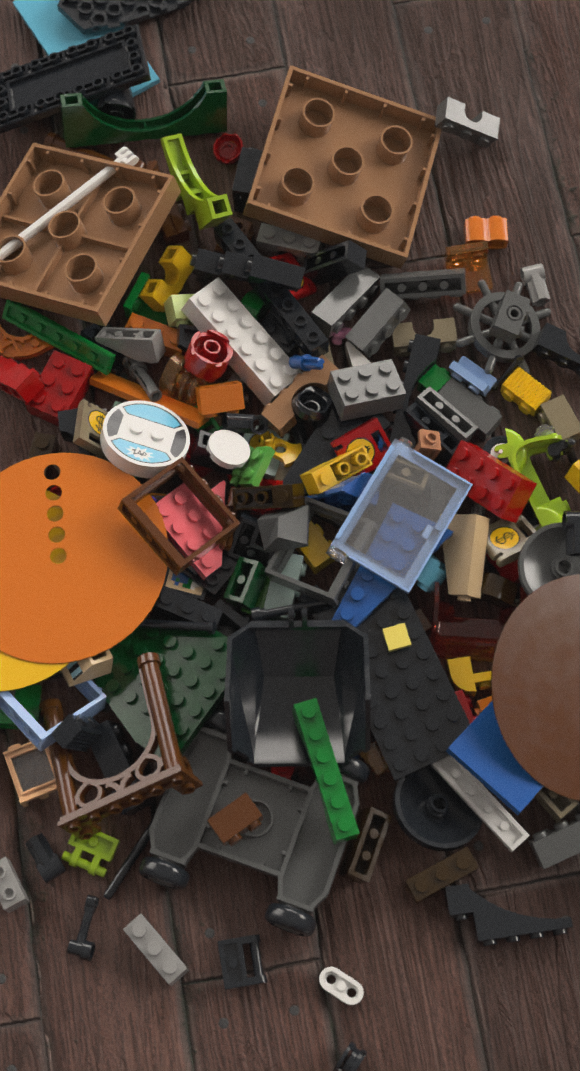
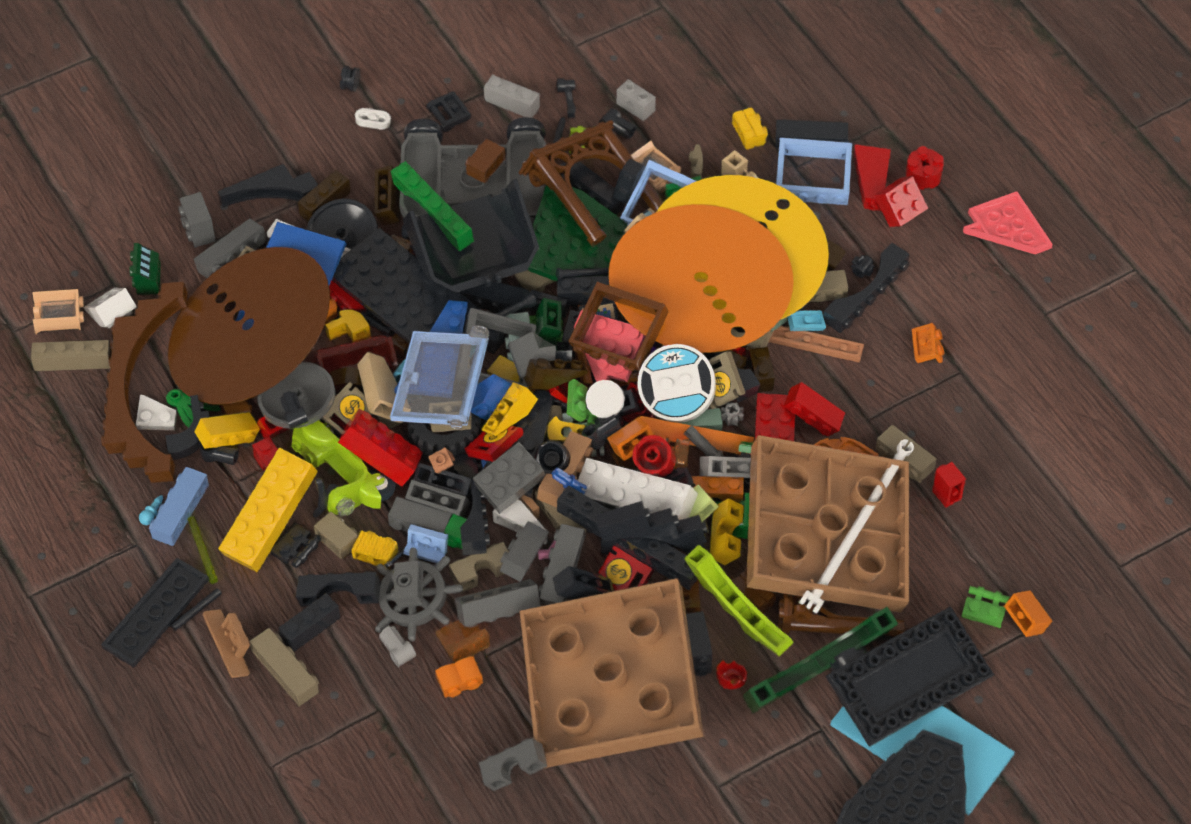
camera: 155 degrees right, 15 degrees down
(396, 637) = (412, 309): light yellow tile -> none

